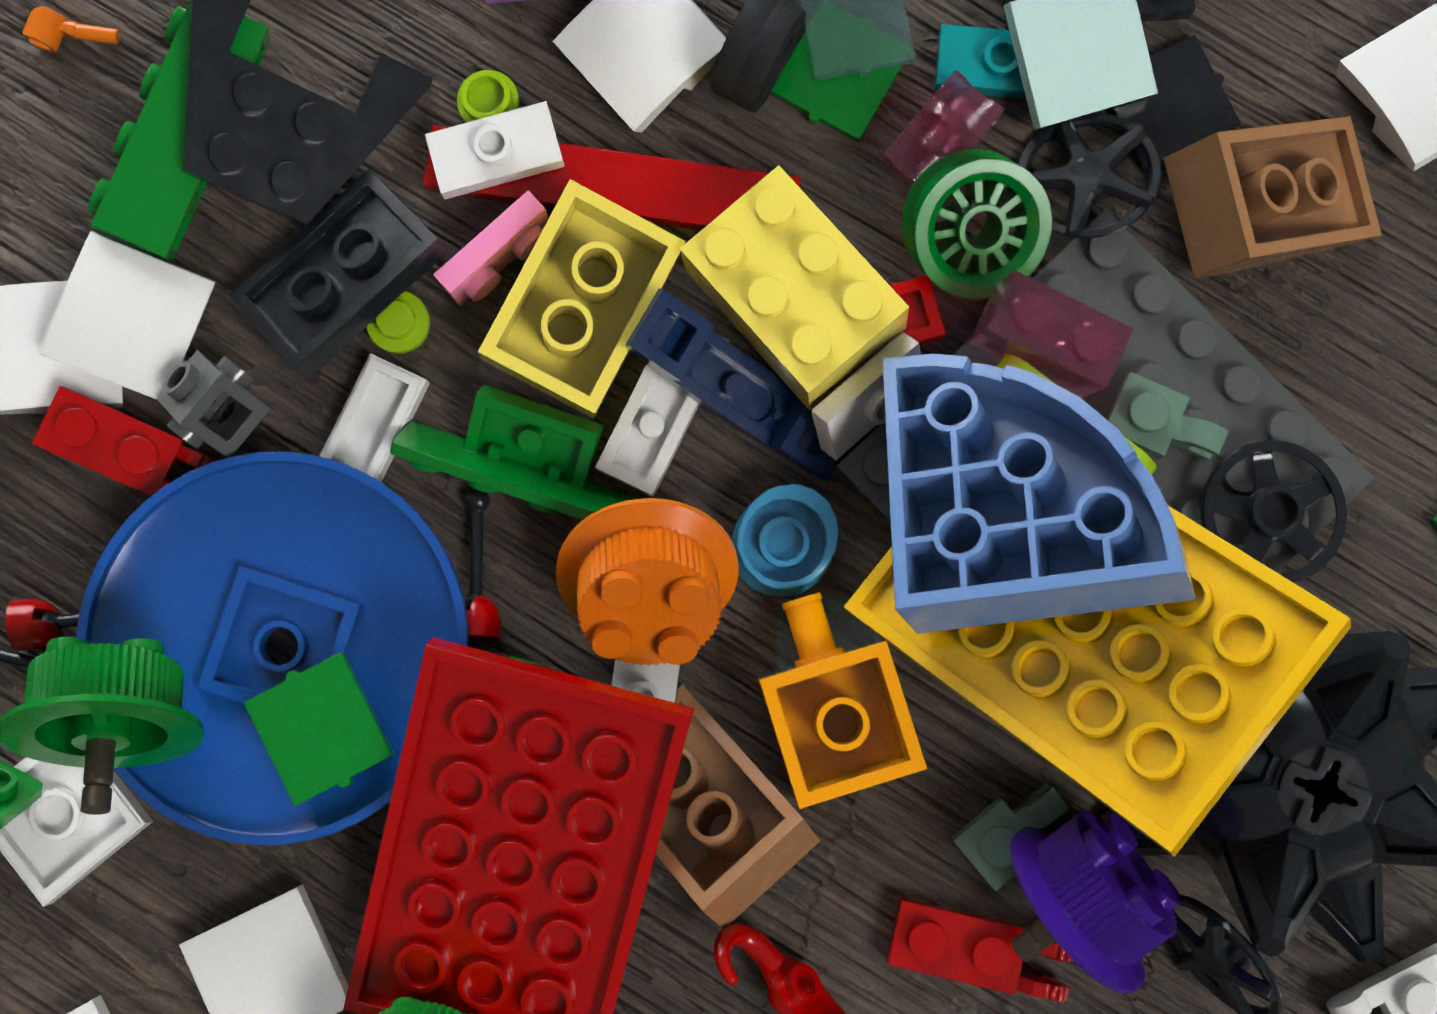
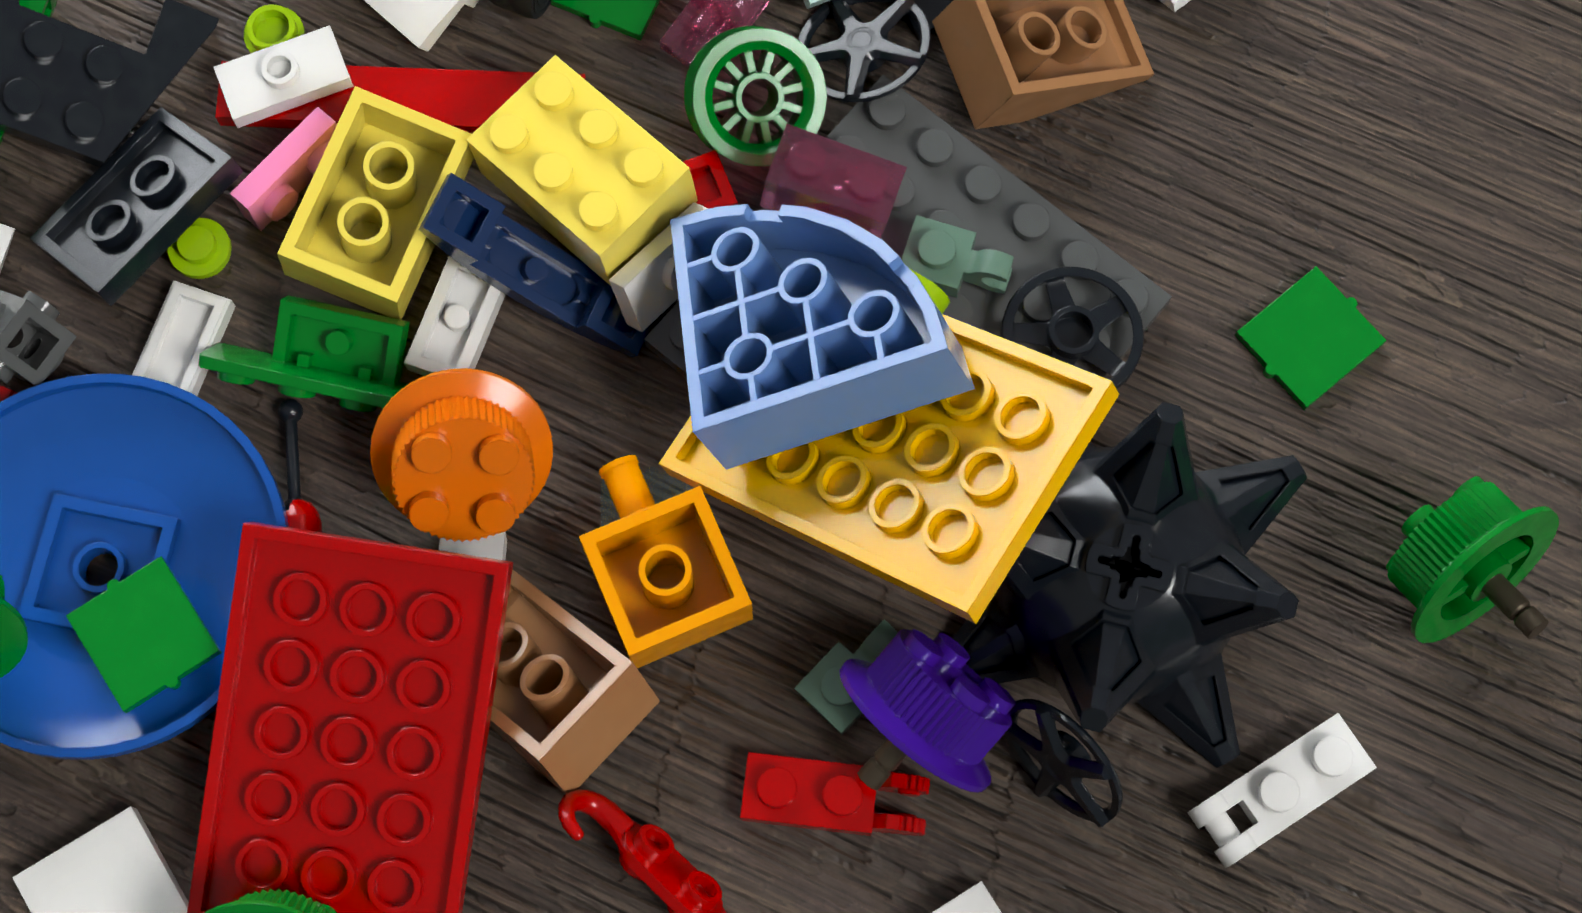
camera: 10 degrees left, 10 degrees down
(785, 540) = (599, 413): dark azure piece -> none

